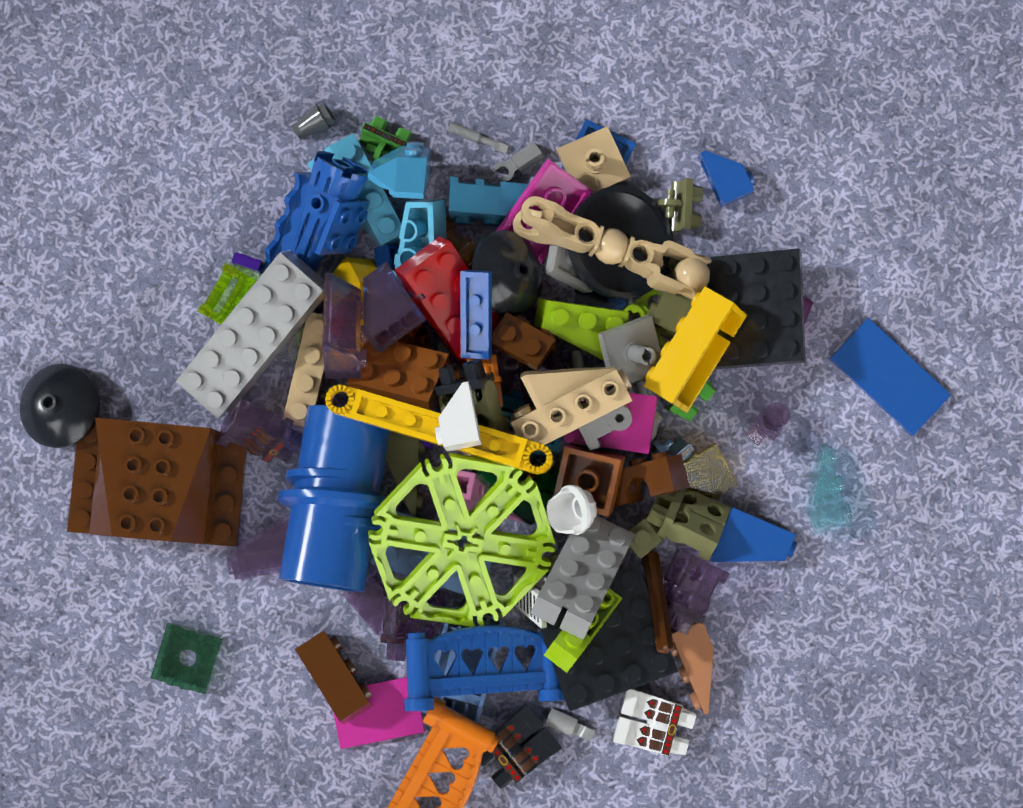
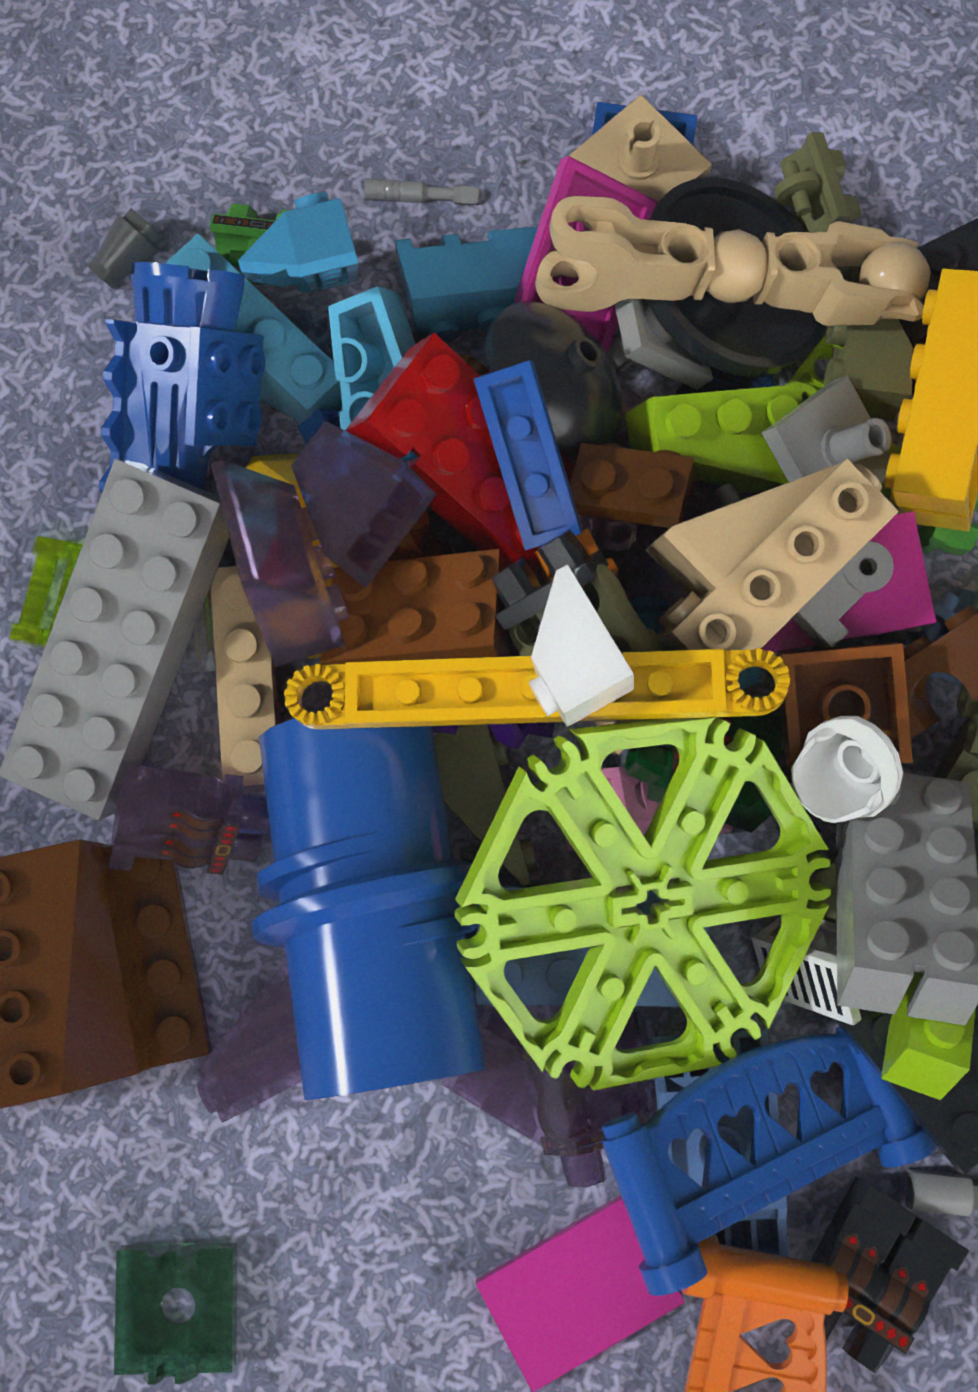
camera: 15 degrees left, 5 degrees down
(248, 263) = (68, 522): dark purple tile -> none
(335, 676) = (477, 1253): reddish brown brick -> none
(520, 161) = (509, 202): light grey bar -> none
(727, 178) = (872, 120): blue slope -> none

